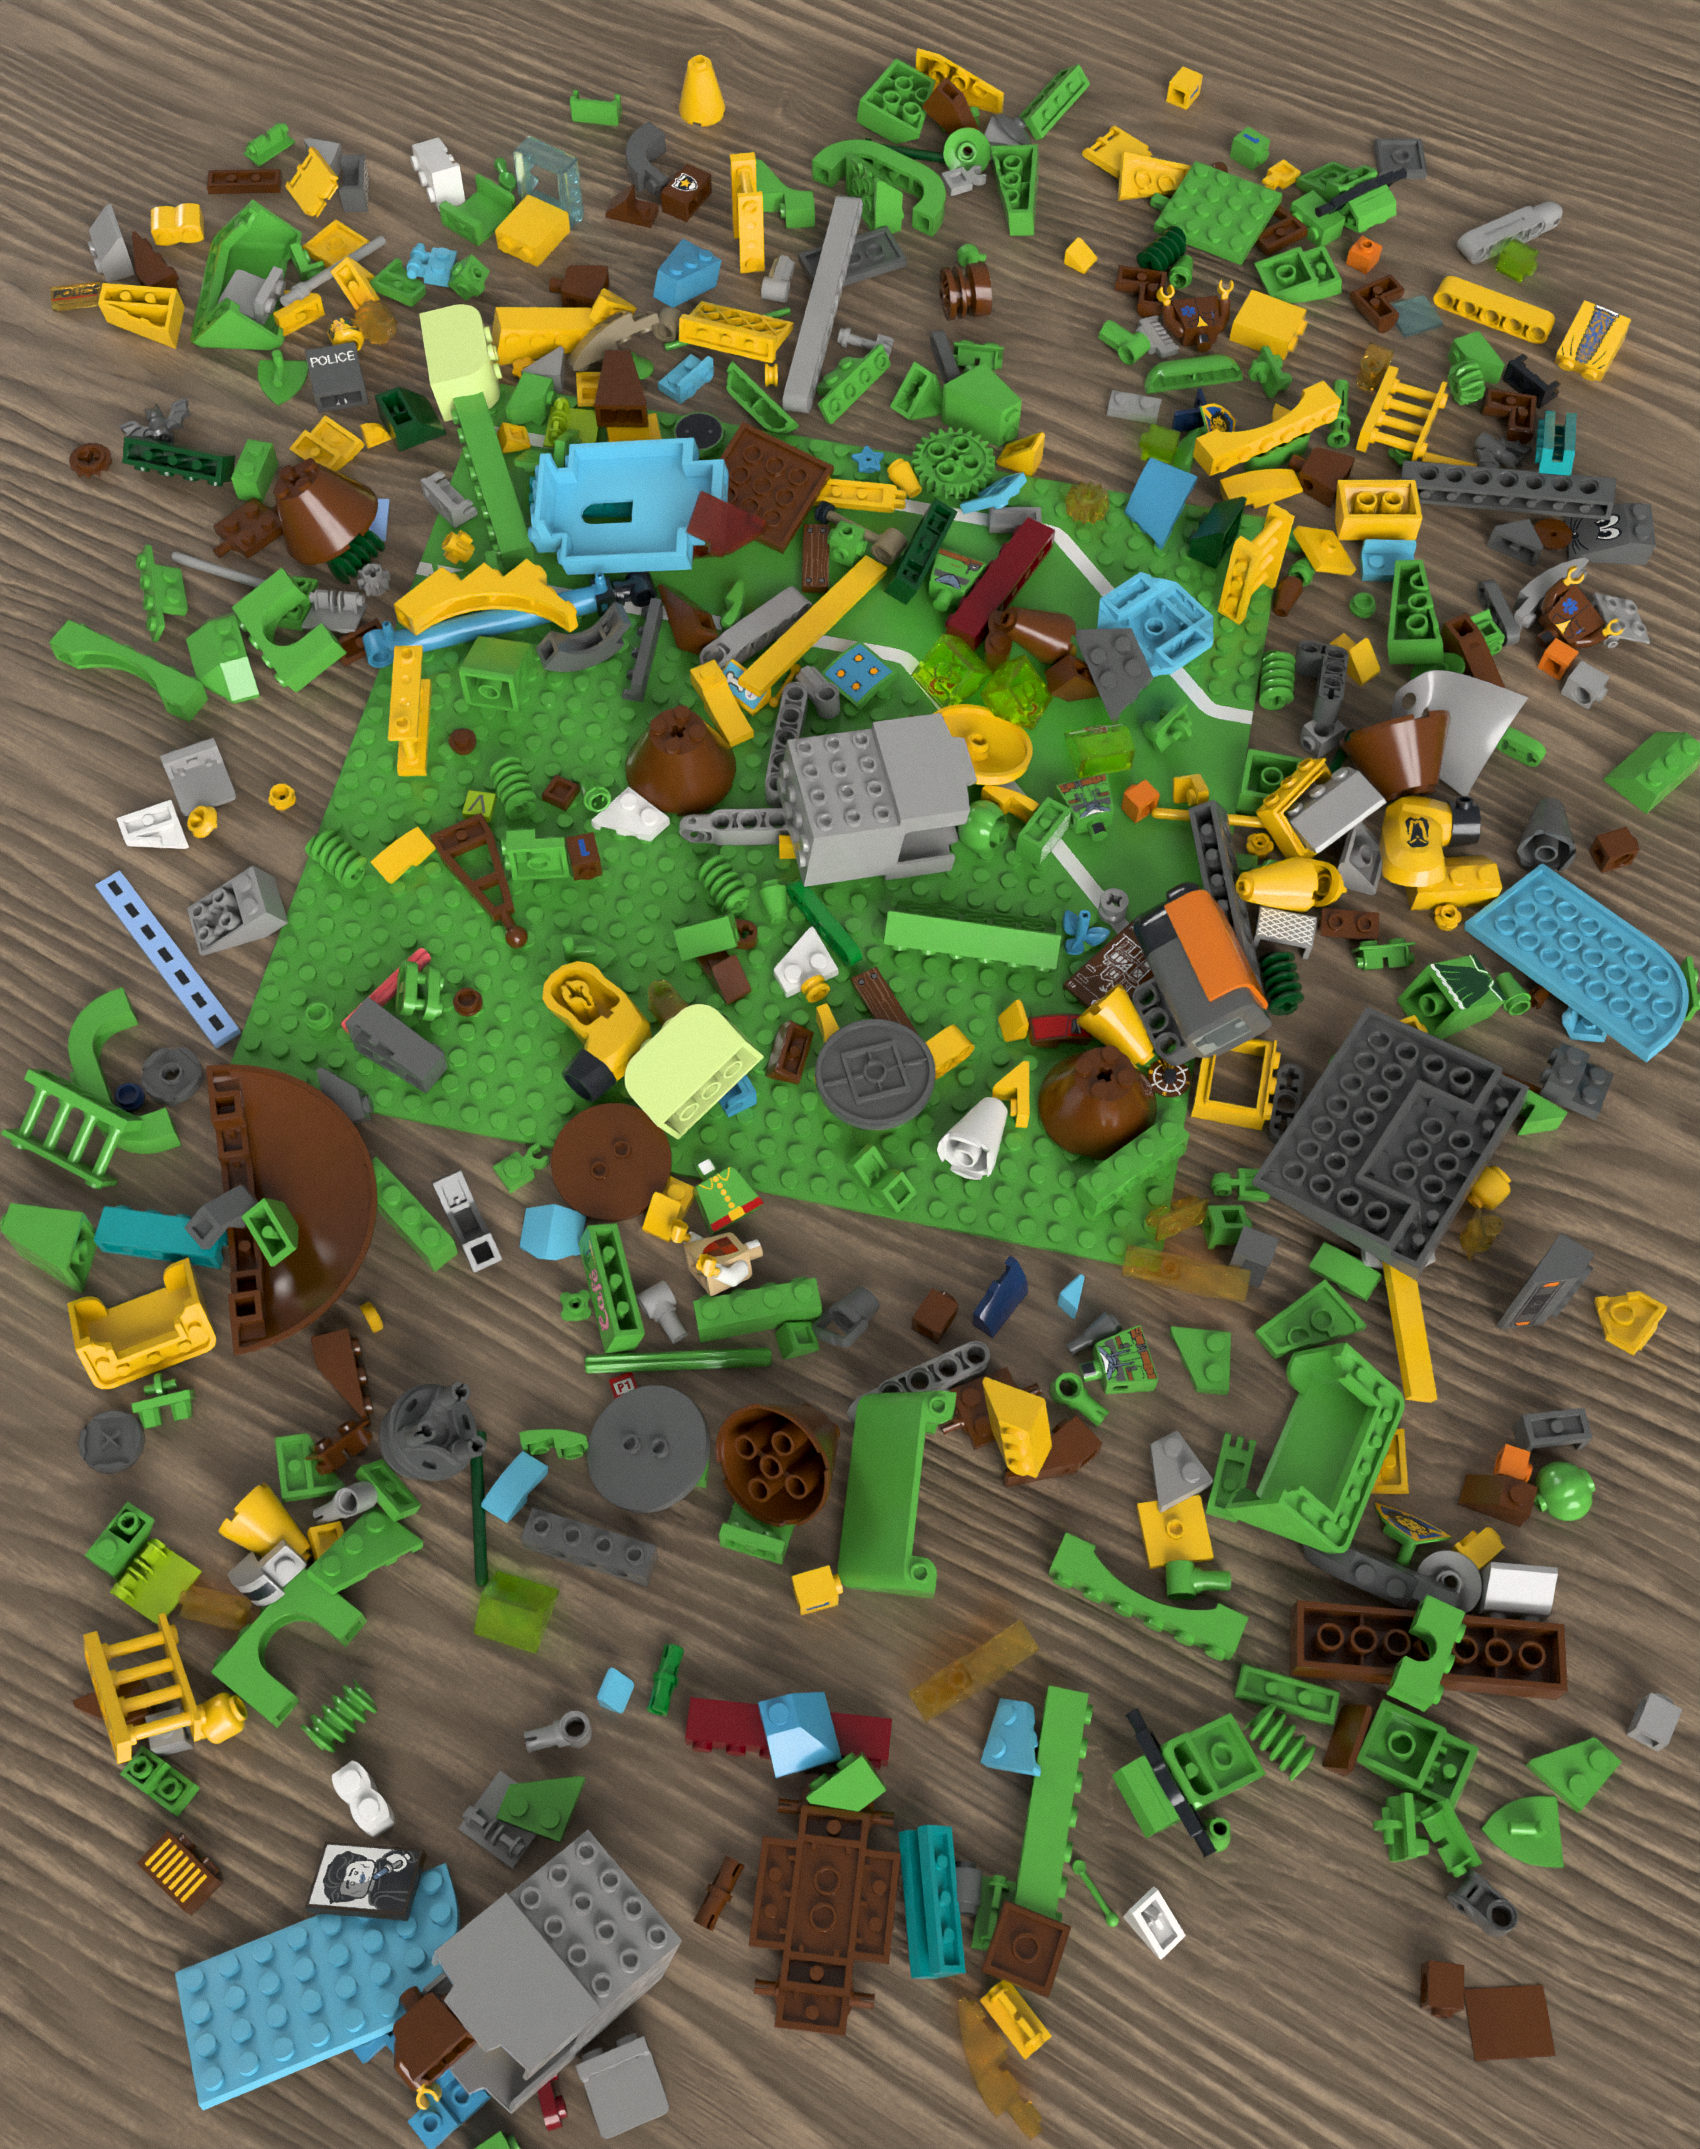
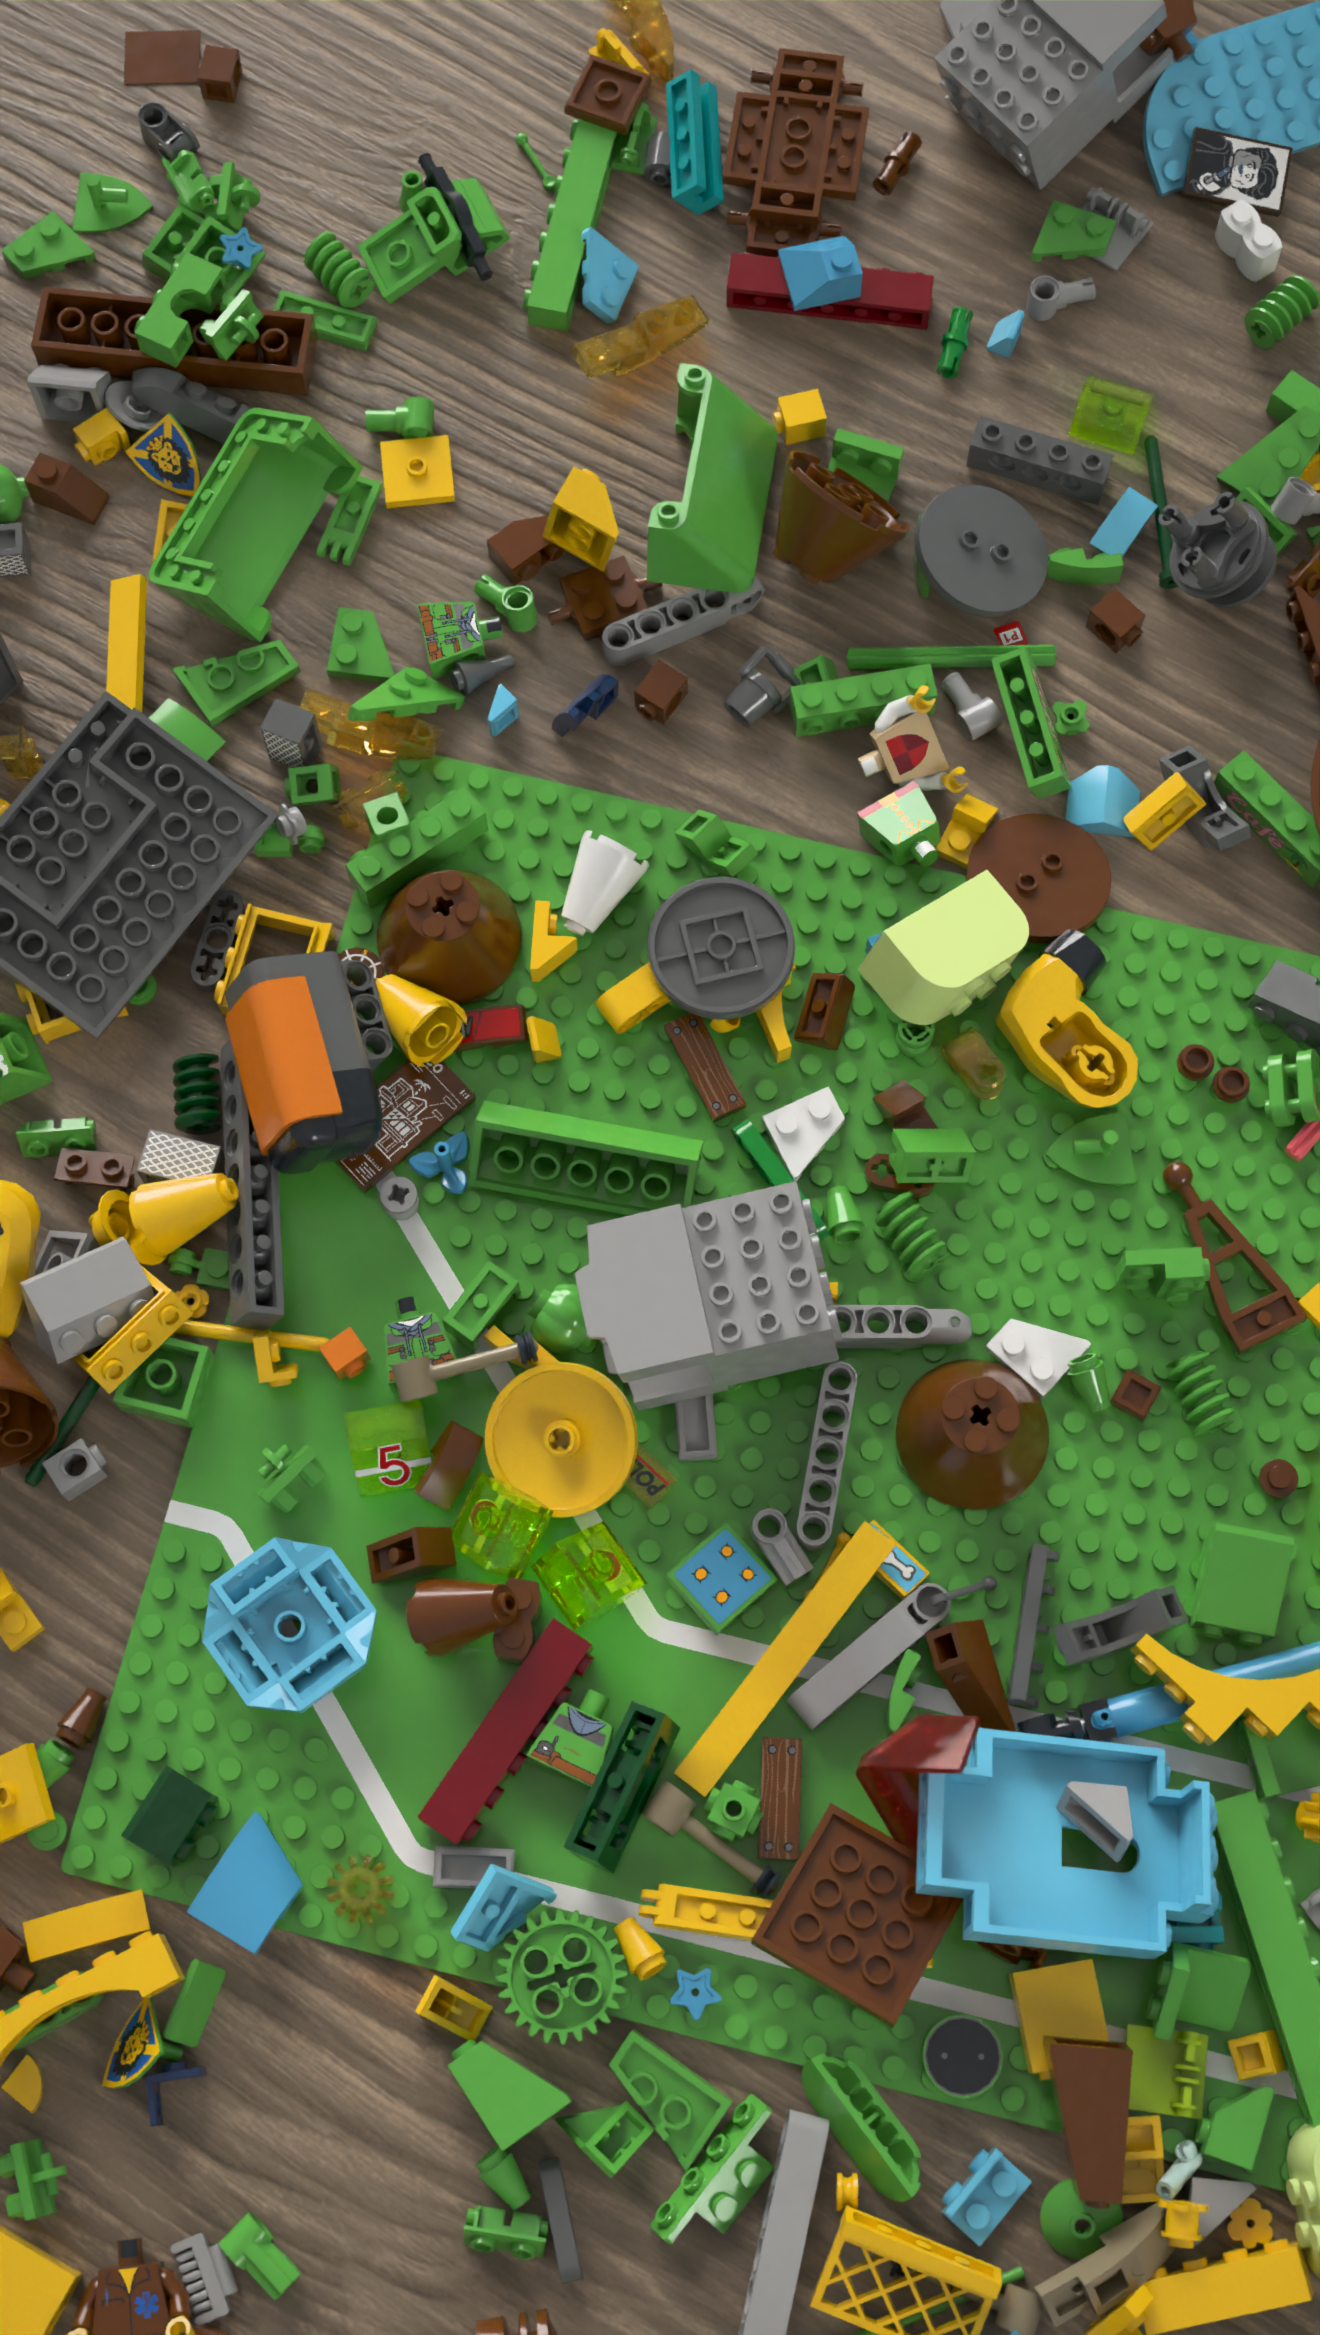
camera: 175 degrees left, 10 degrees up
(371, 1316) = (1303, 710): yellow tile -> none
(479, 802) = (1244, 1375): lime tile -> none
(494, 1018) = (1195, 1062): none -> reddish brown plate
(503, 1212) = (1163, 811): none -> yellow slope
(517, 1170) = (1149, 880): bright green plate -> none
(529, 1391) = (1115, 621): none -> reddish brown brick
(566, 384) = (1180, 2171): none -> light aqua arm
(568, 349) = (1182, 2222): none -> yellow brick
(584, 856) = (1097, 1283): reddish brown brick -> none
(603, 520) = (1100, 1813): none -> light grey slope
(707, 653) = (988, 1583): none -> dark grey hinge
(720, 703) = (918, 1526): yellow slope -> none
(815, 988) = (791, 1088): yellow bush -> none
(845, 338) = (722, 2278): light grey hinge -> none
(850, 1786) = (772, 224): bright green slope -> none
(880, 418) = (672, 2095): none -> bright green wing
(1054, 733) = (453, 1462): none -> reddish brown slope
(1083, 765) = (418, 1378): none -> dark tan piece
(1115, 666) = (356, 1554): dark grey wing -> none
(1133, 407) = (261, 2116): light grey plate -> none
(1155, 1923) = (486, 132): white slope -> none
(1156, 1298) = (405, 695): none -> bright green wing
(1159, 444) = (232, 2022): clear neon green brick -> none
(1161, 1188) = (385, 815): none -> bracket
(1176, 1471) = (408, 524): light grey wing -> none
(1192, 373) = (158, 2191): bright green brick -> none
(1212, 1629) = (392, 372): bright green arch -> none
(1240, 1179) = (290, 823): none -> light grey plate
(1255, 563) = (126, 1707): yellow fence -> none
(1277, 679) = (121, 1562): bright green piece -> none
(1329, 667) = (59, 1537): dark grey beam -> none
(1347, 1739) = (270, 273): reddish brown slope -> none
(1367, 1636) = (234, 324): none -> bright green hips
(1381, 1759) = (236, 257): none -> dark azure plate
(1513, 1463) = (44, 519): orange plate -> none

